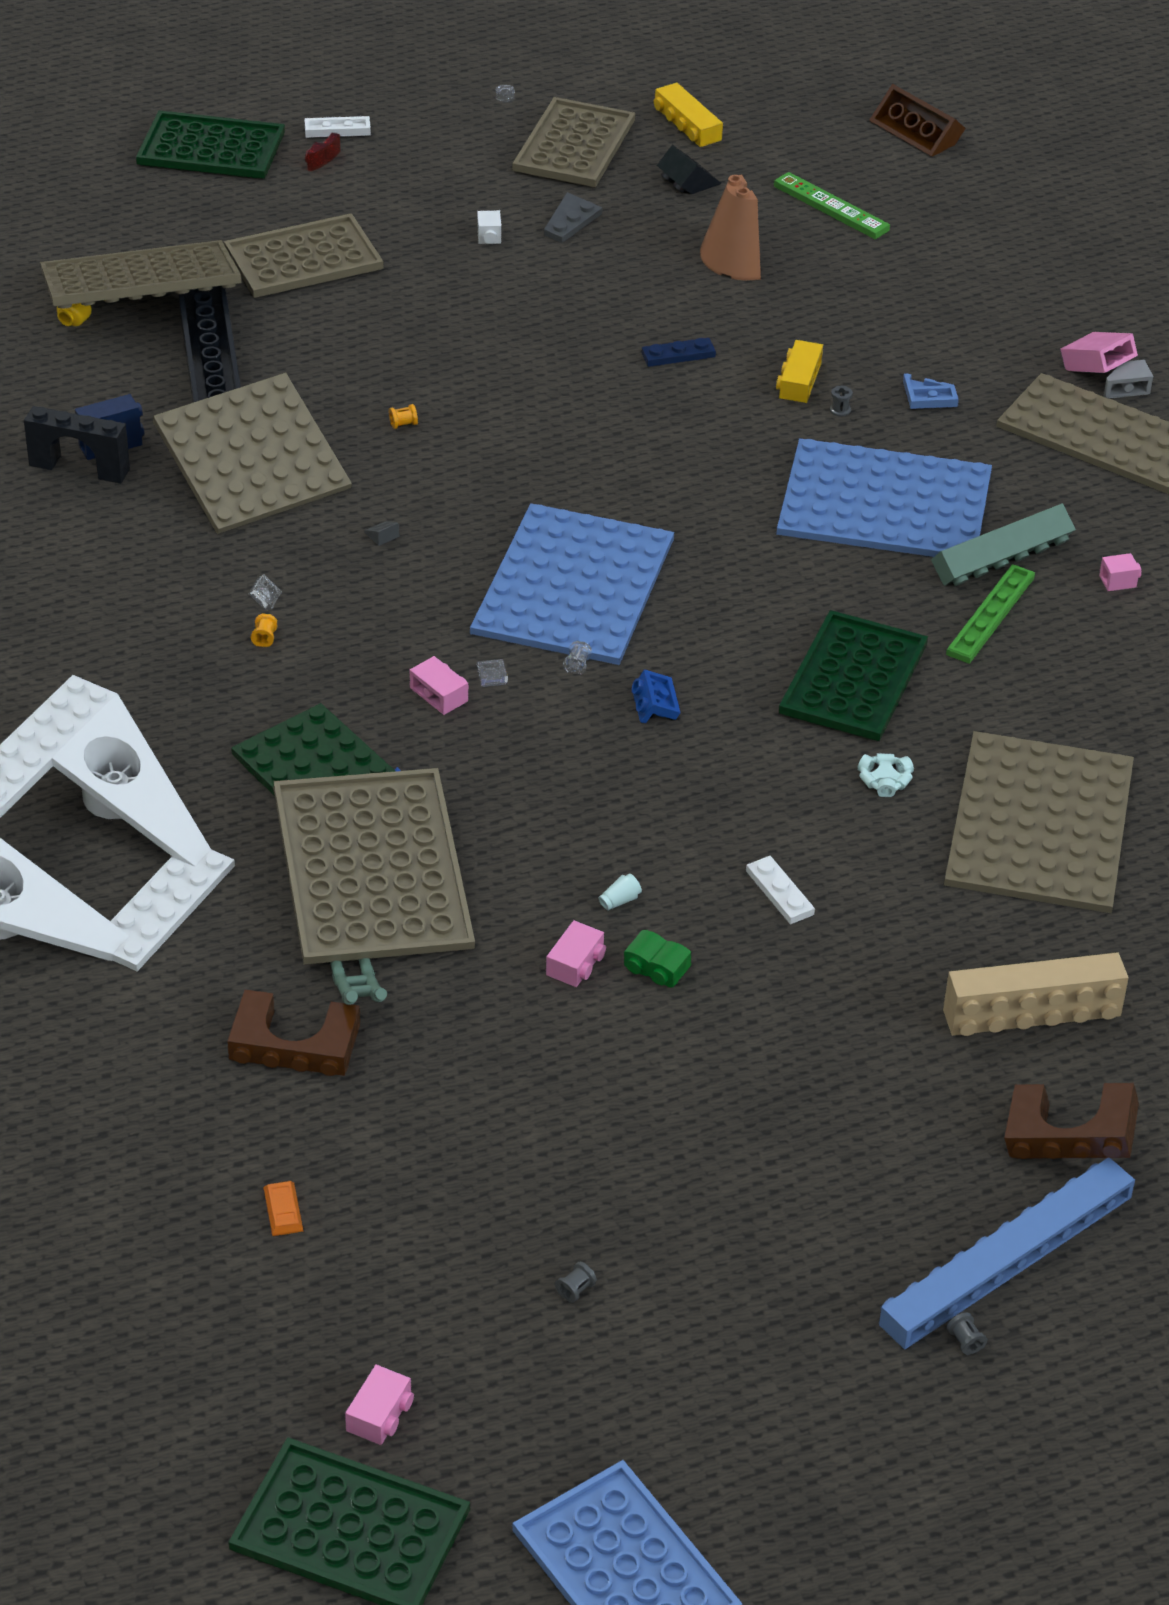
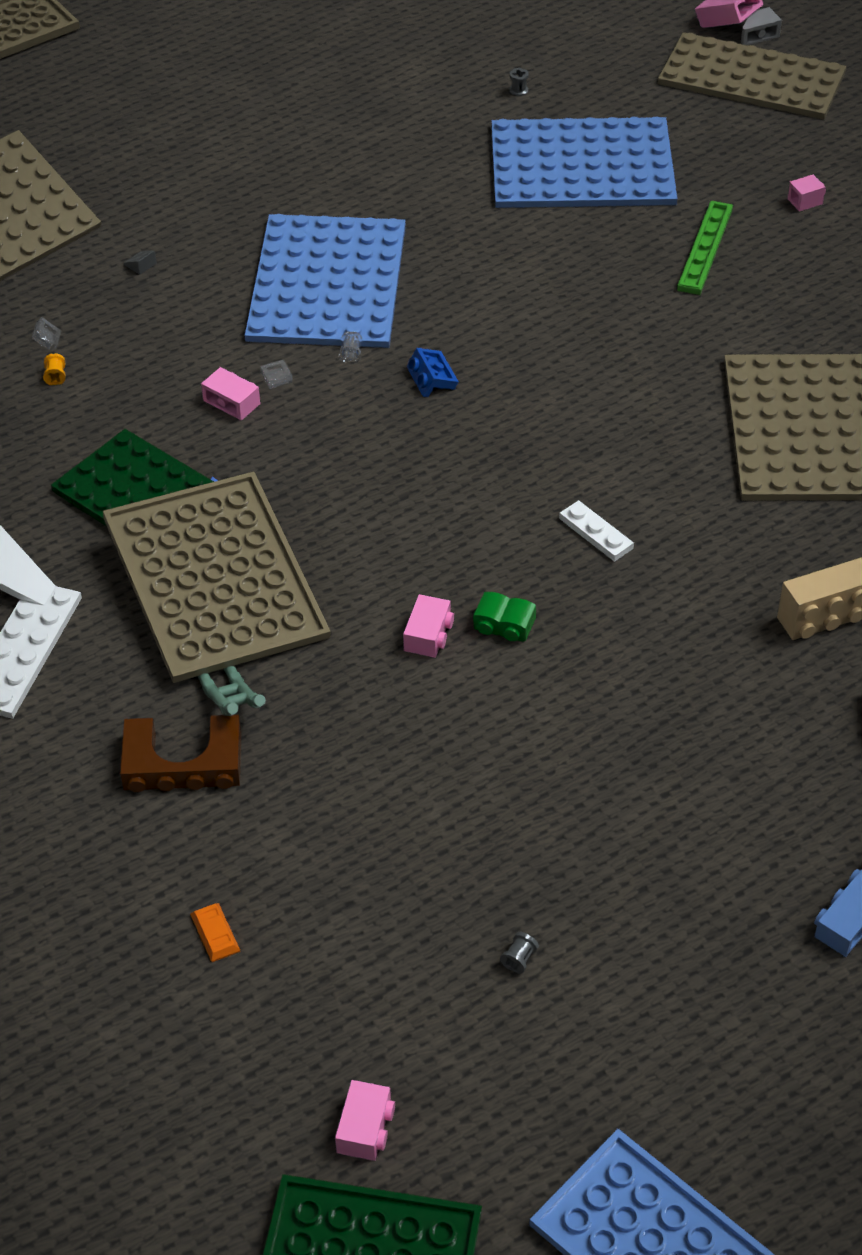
camera: 10 degrees left, 5 degrees up
(403, 416) = (132, 154): light orange bush -> none
(620, 892) = (453, 558): light aqua cone -> none
(678, 352) = (362, 61): dark blue plate -> none
(800, 371) = (474, 62): yellow brick -> none
(853, 675) = (603, 322): dark green plate -> none
(885, 777) = (663, 410): light aqua piece -> none
(929, 393) = (593, 64): medium blue wing -> none
(1003, 544) = (700, 184): sand green brick -> none

